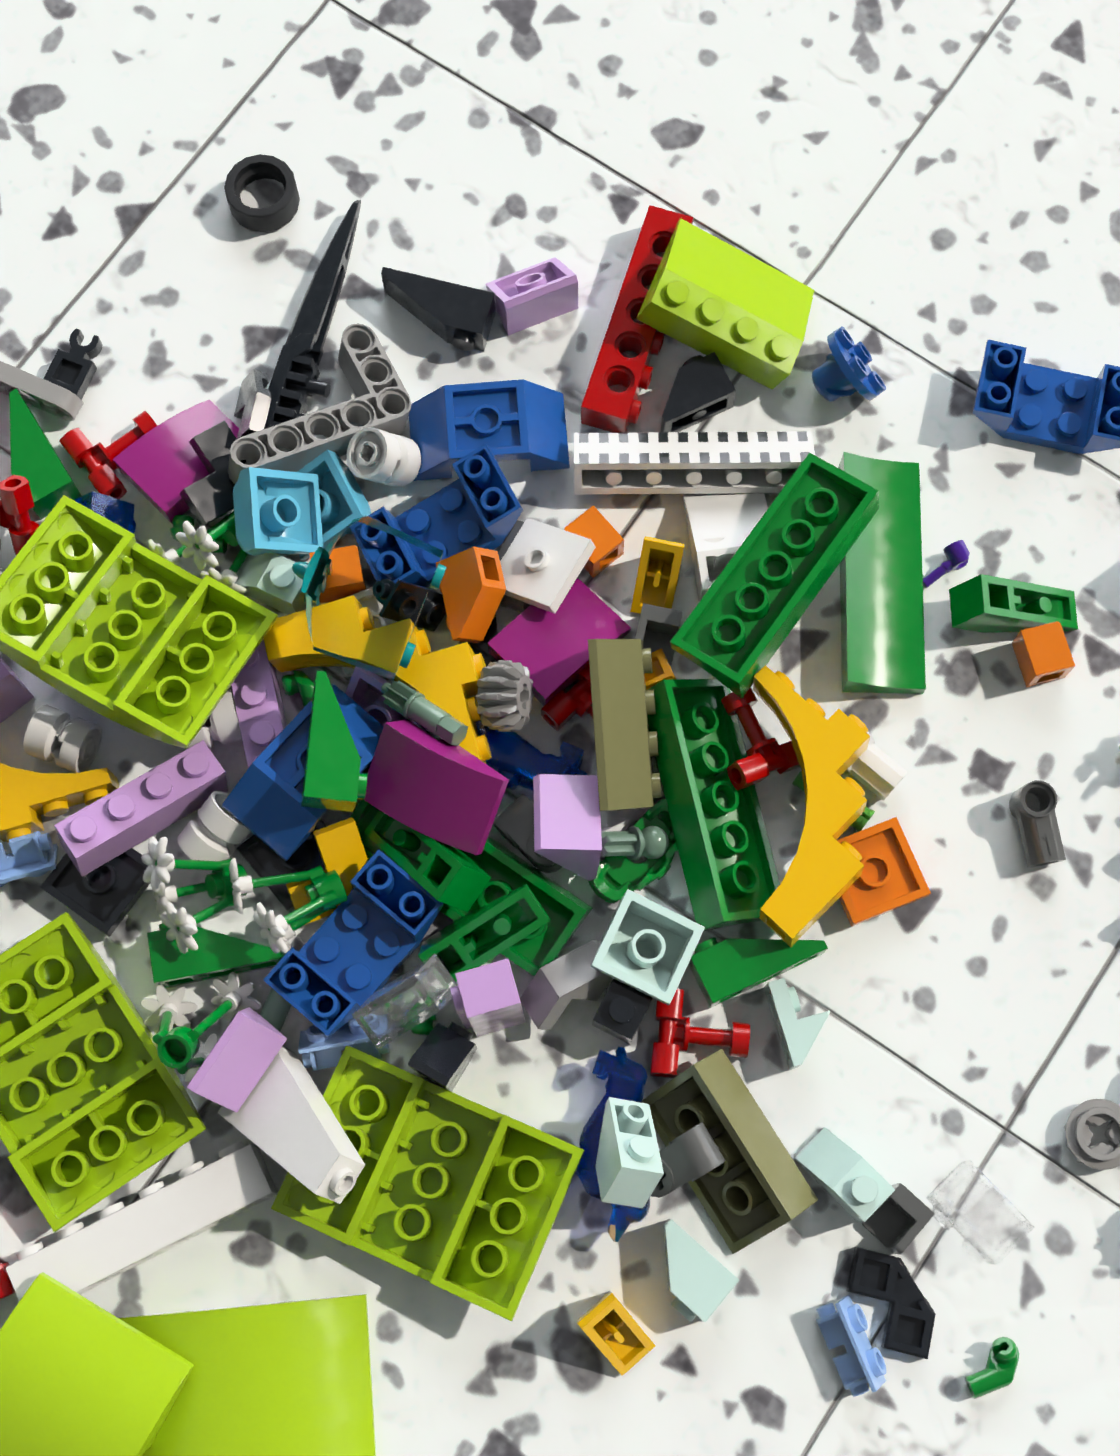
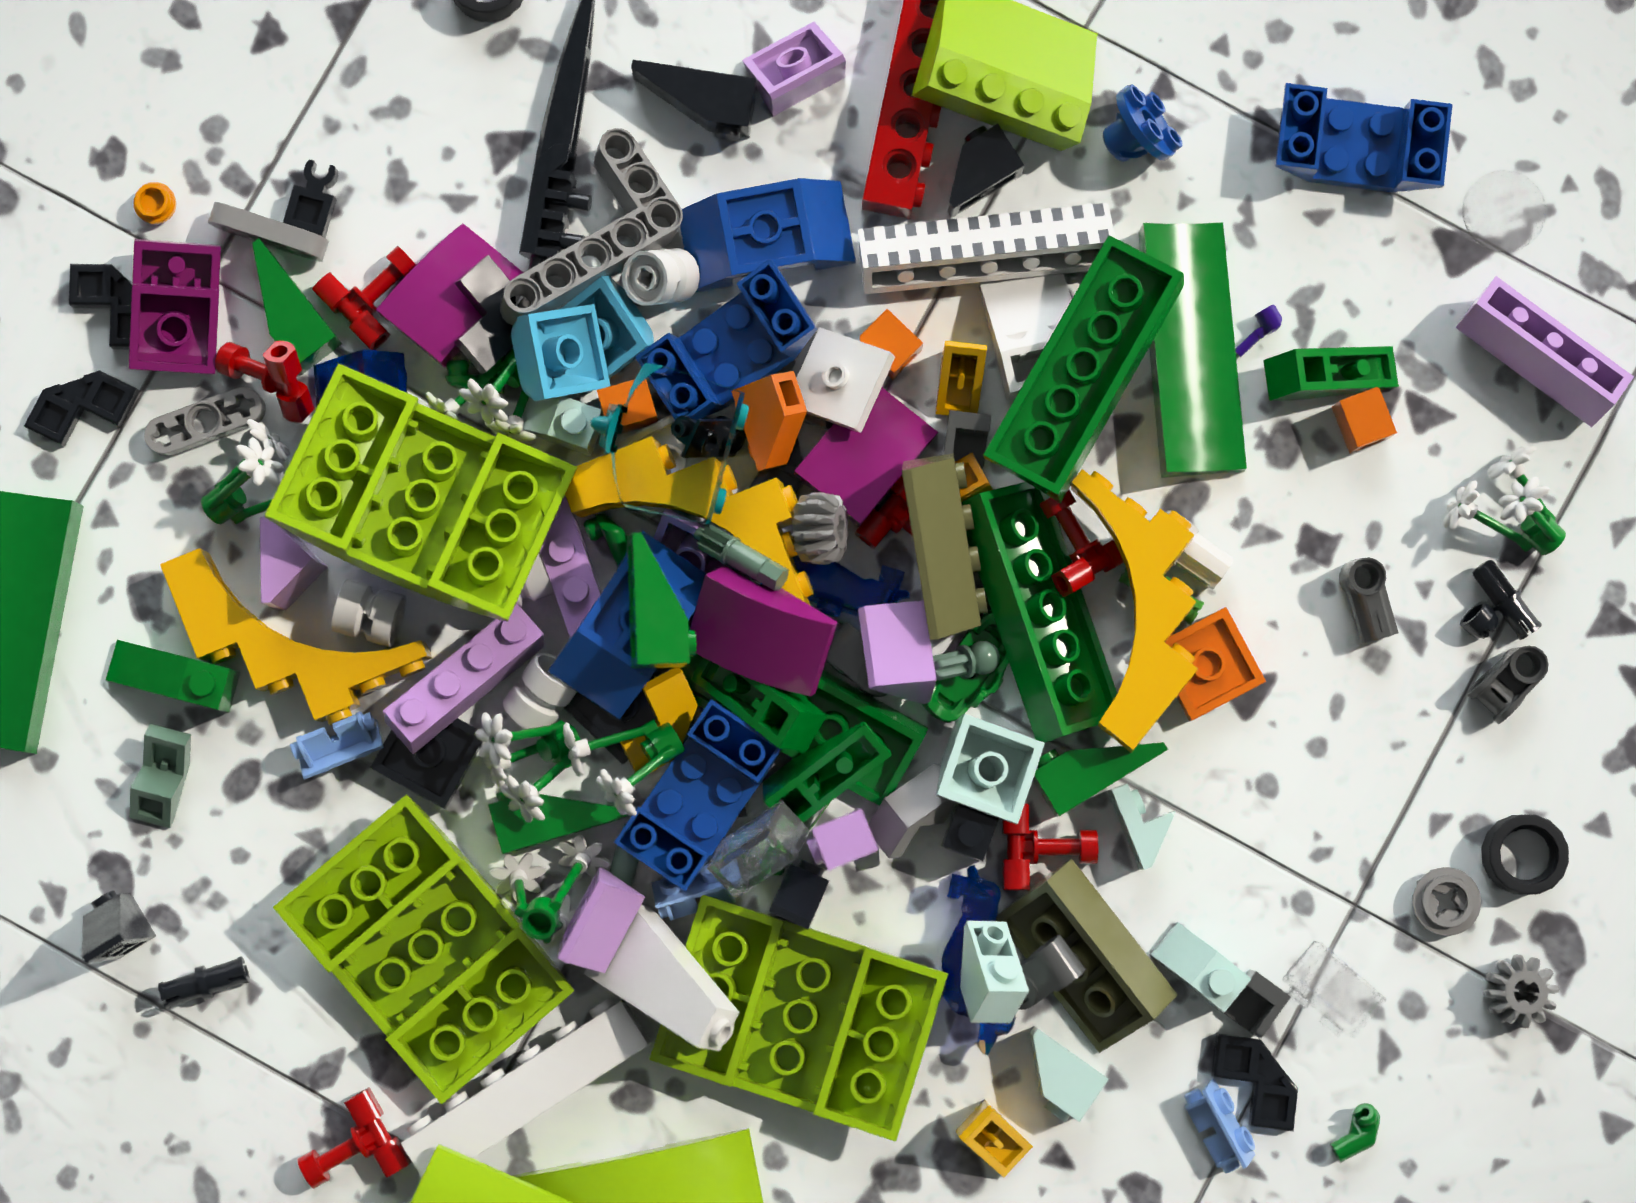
camera: 10 degrees left, 10 degrees up
(253, 403) = (517, 230): tile -> none

